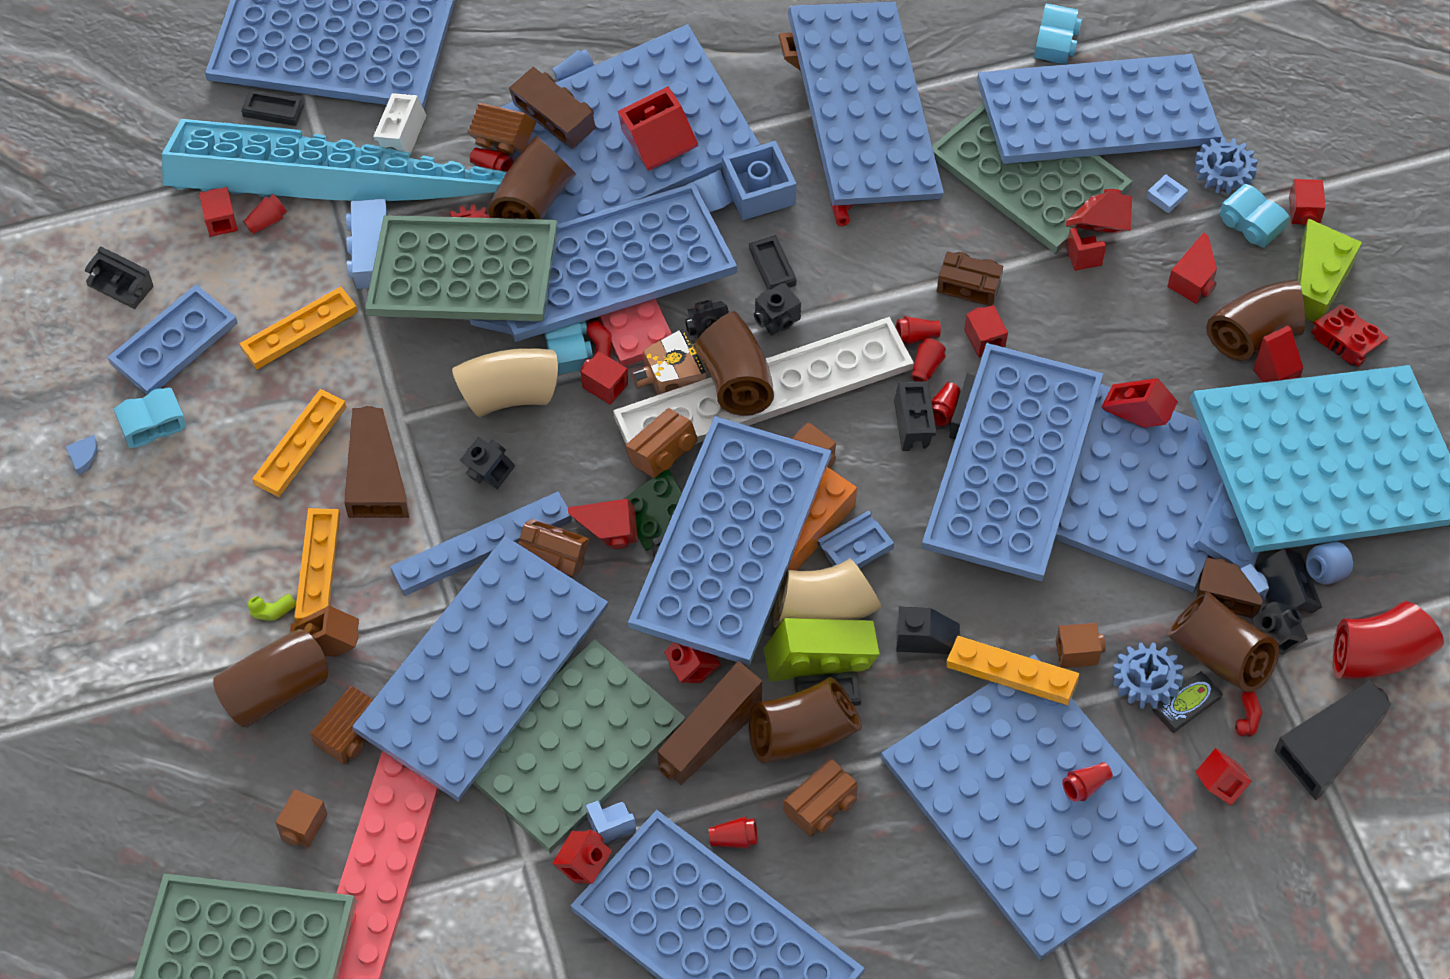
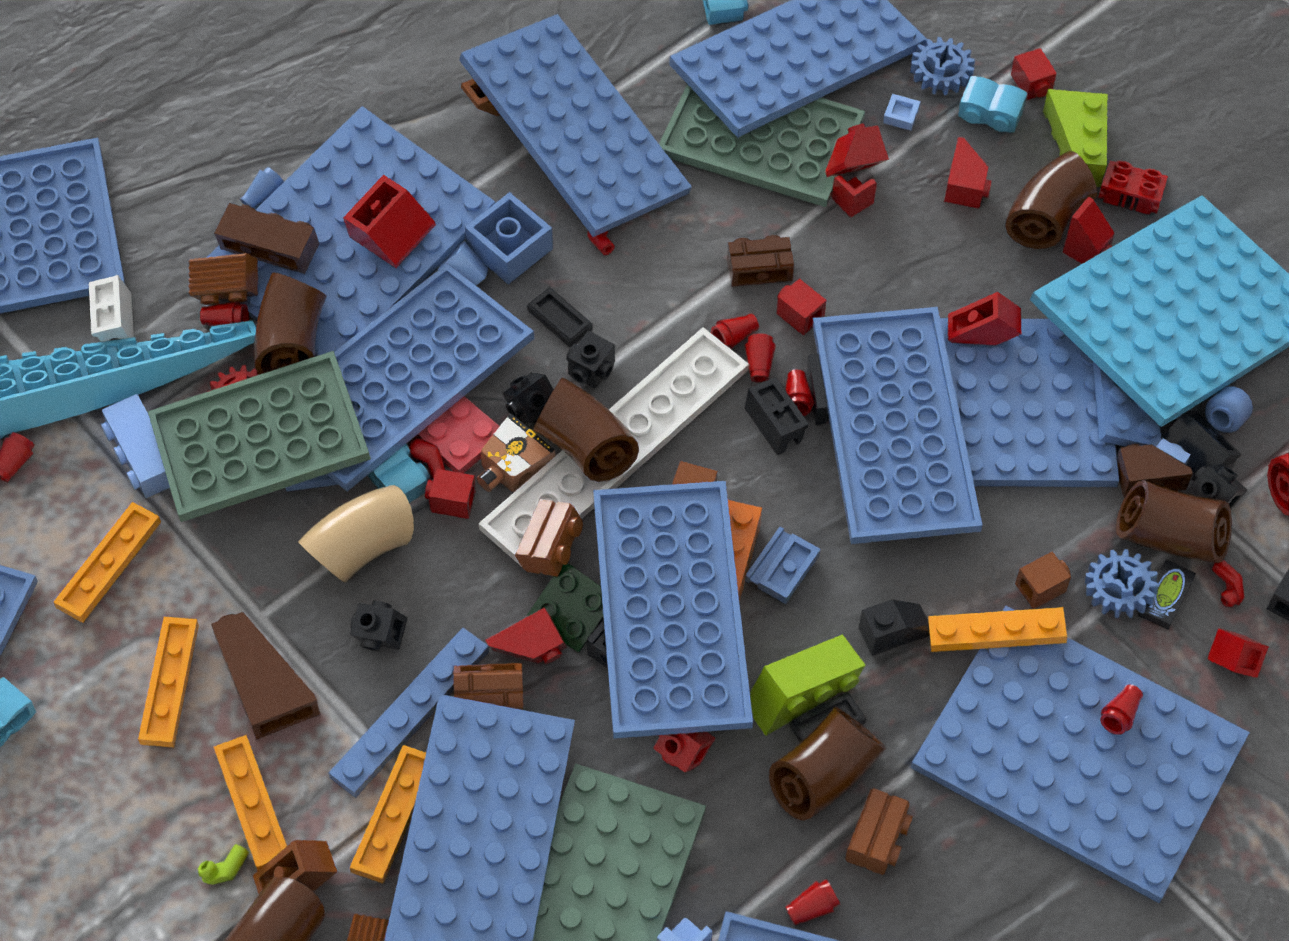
camera: 25 degrees left, 0 degrees up
(405, 635) = (390, 817): none -> light orange plate
(710, 724) = (737, 802): reddish brown slope -> none
(825, 594) = (787, 626): tan brick -> none

